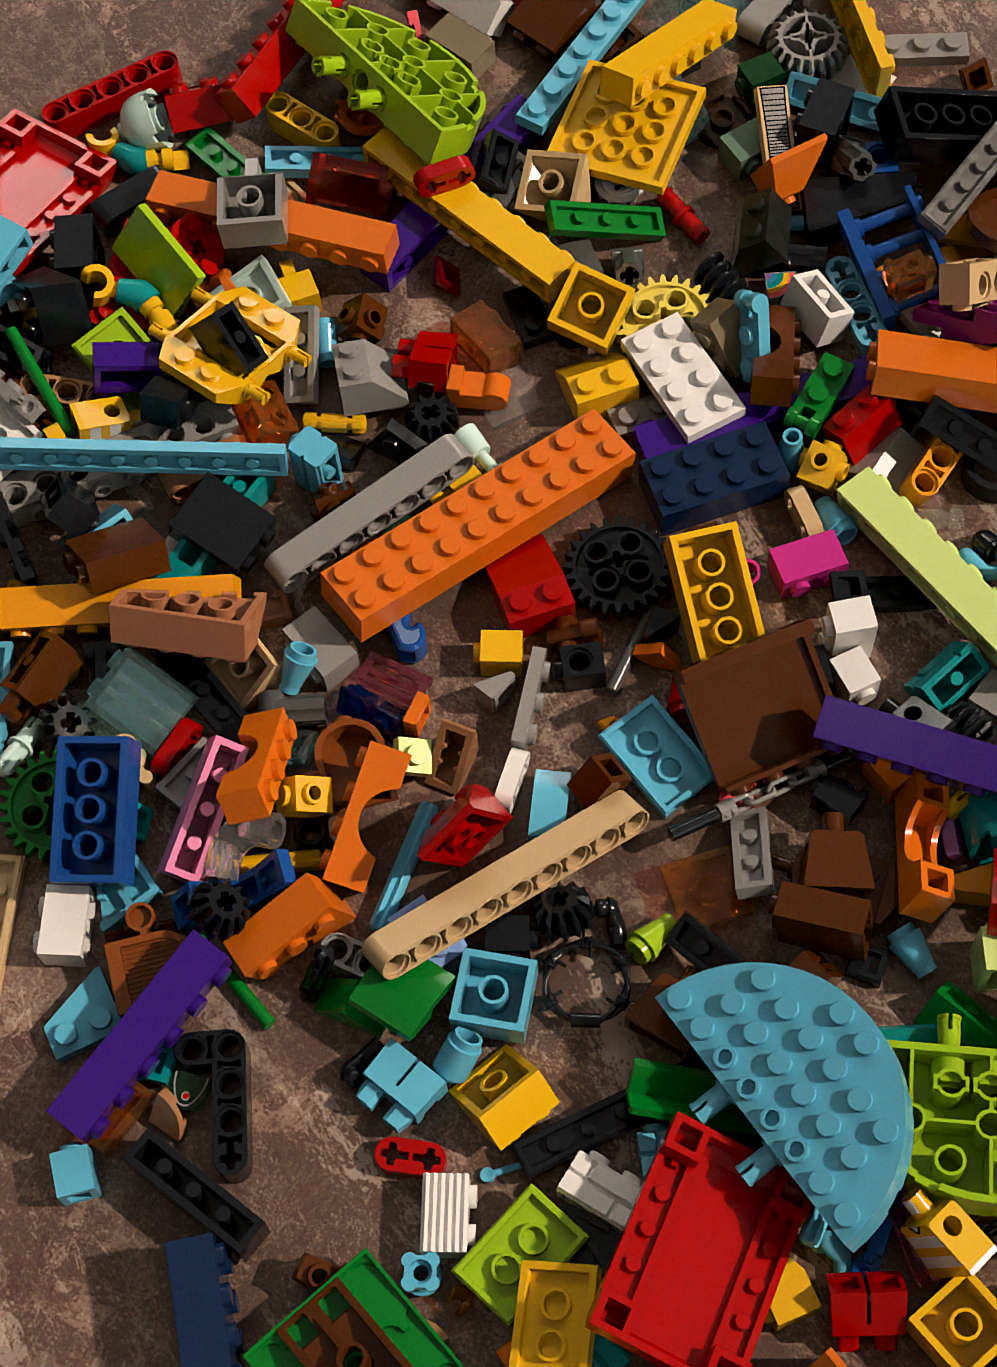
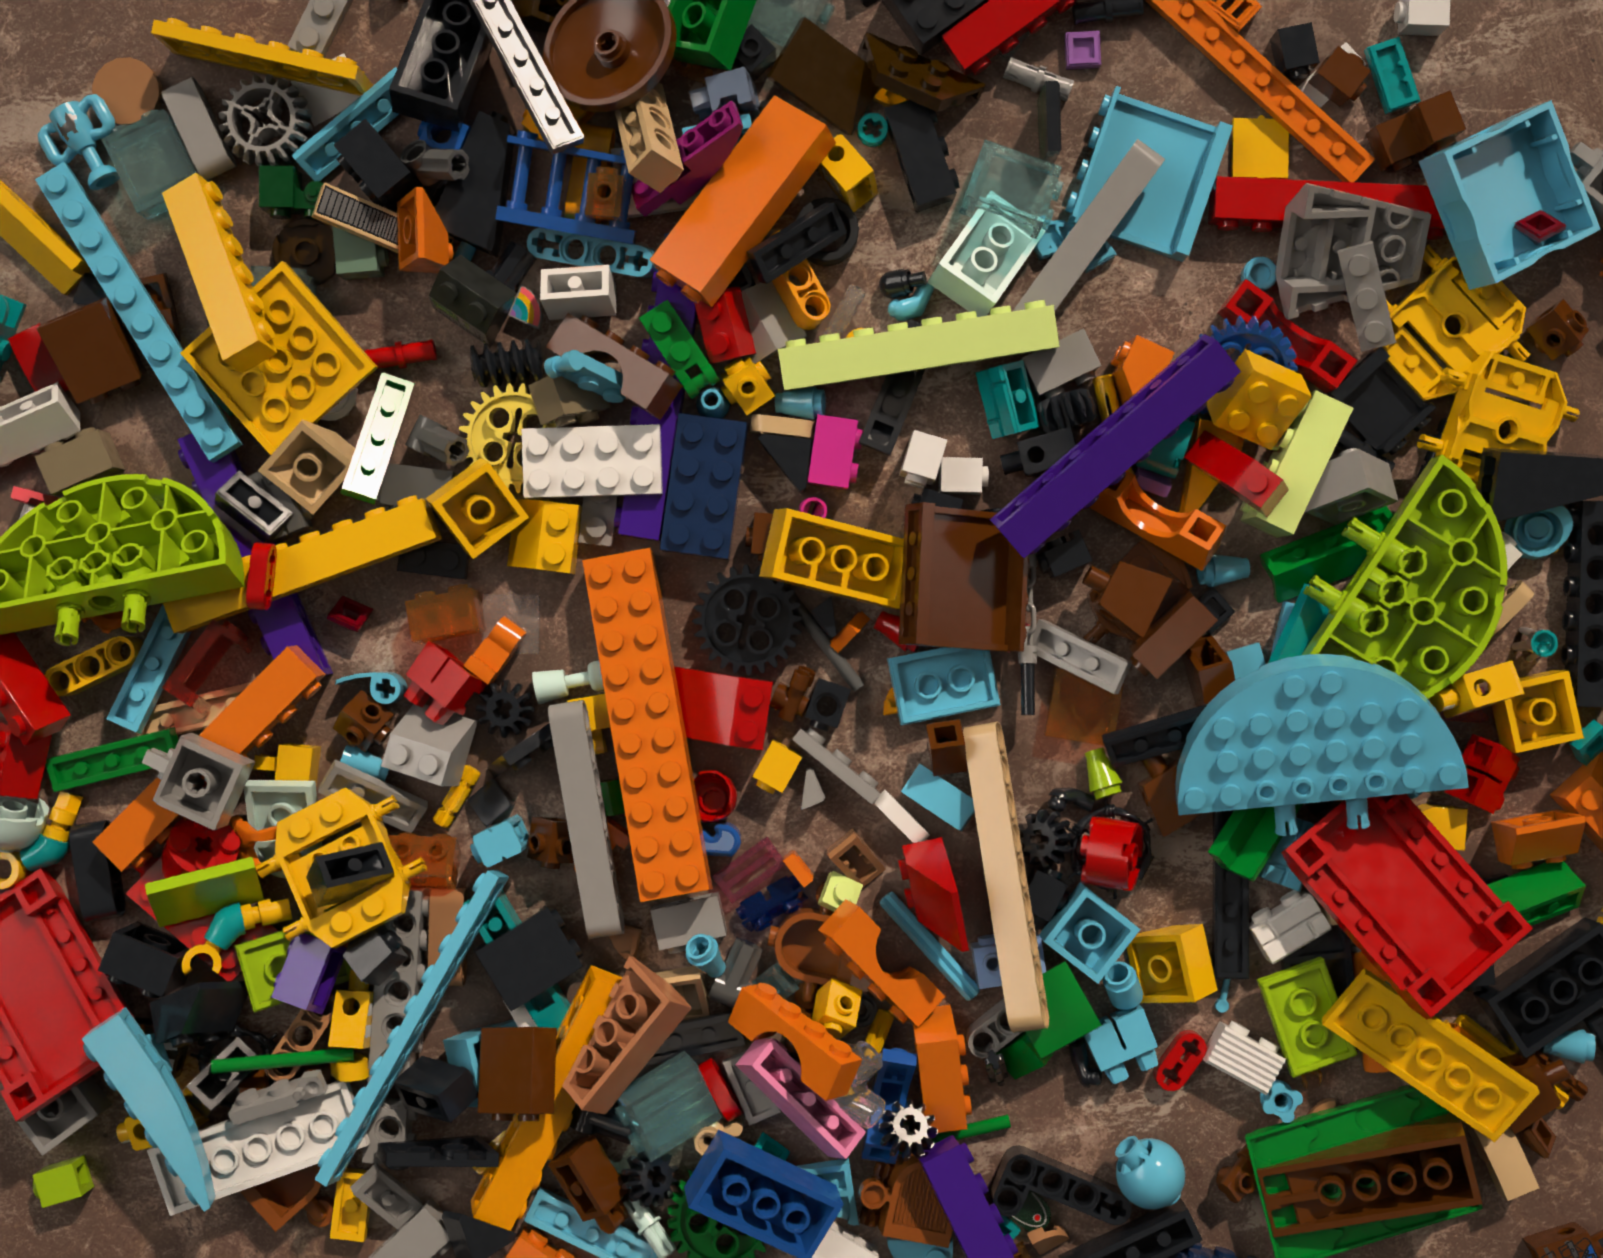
camera: 65 degrees left, 25 degrees up
(283, 1172) = (1149, 1172): none -> medium azure brick
(399, 321) = (376, 685): none -> medium azure panel
(445, 613) = (715, 796): none -> red hair
(582, 972) = (1111, 853): none -> red brick
(782, 528) = (790, 455): none -> black slope

